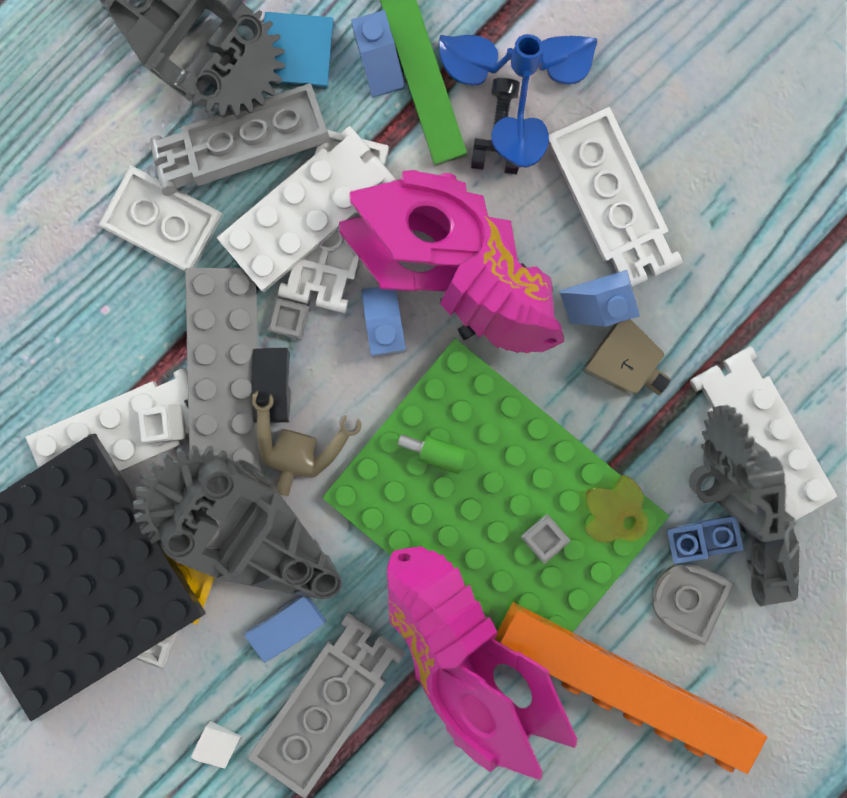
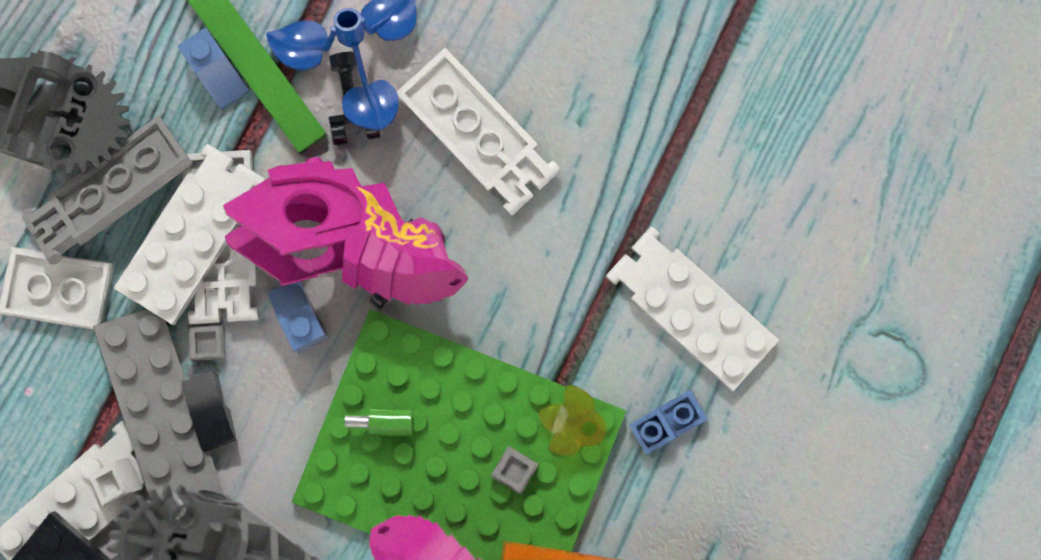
camera: 15 degrees left, 5 degrees down
(295, 451) = (251, 467): dark tan piece -> none
(306, 48) = (144, 83): dark azure tile -> none
(601, 301) = (495, 229): medium blue slope -> none
(628, 360) = (539, 276): dark tan torso -> none
(690, 600) = (674, 484): light grey tile -> none
(754, 493) = (689, 365): dark grey connector -> none

